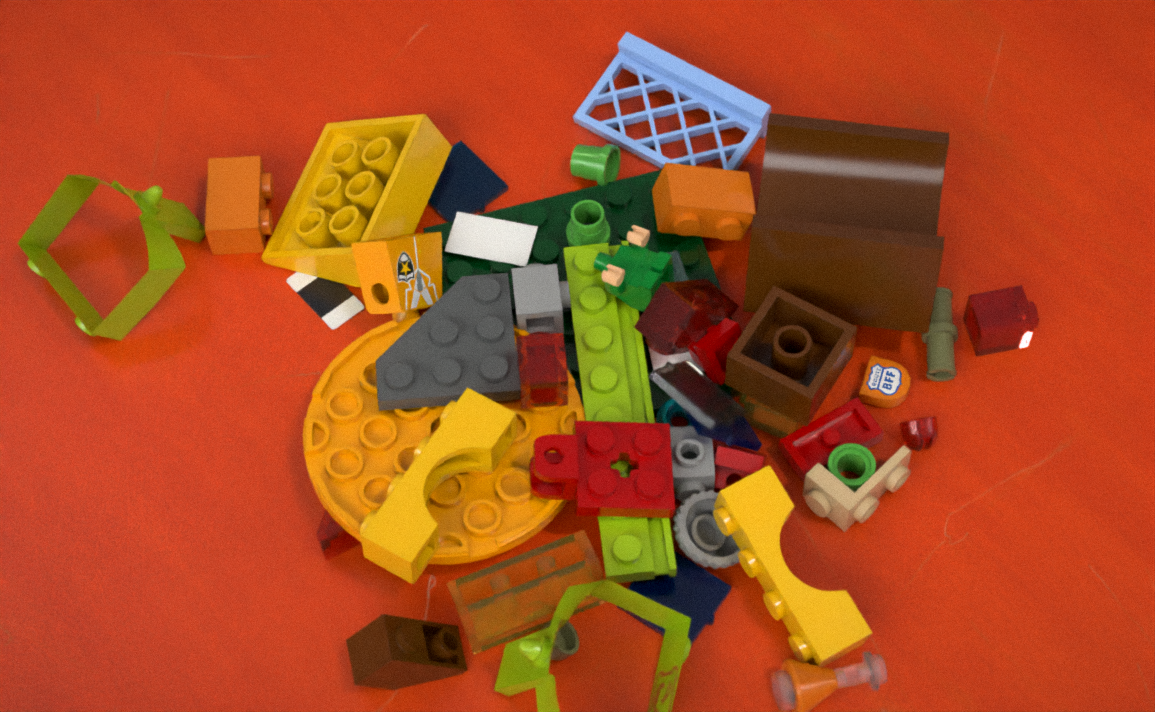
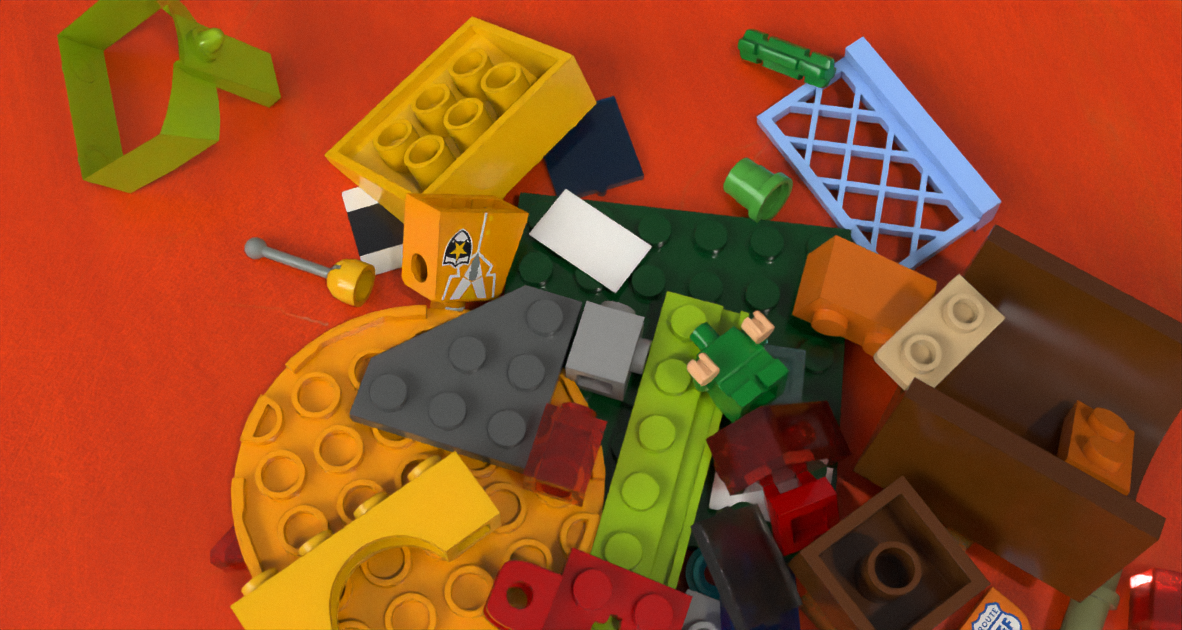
camera: 20 degrees right, 10 degrees up
(237, 205) = (323, 80): orange brick -> none
(322, 334) = (347, 280): none -> yellow hinge
(577, 67) = (787, 58): none -> green axle
(587, 212) = (710, 290): bright green piece -> none
(763, 190) = (939, 335): none -> tan bracket
(894, 218) = (1098, 445): none -> orange plate

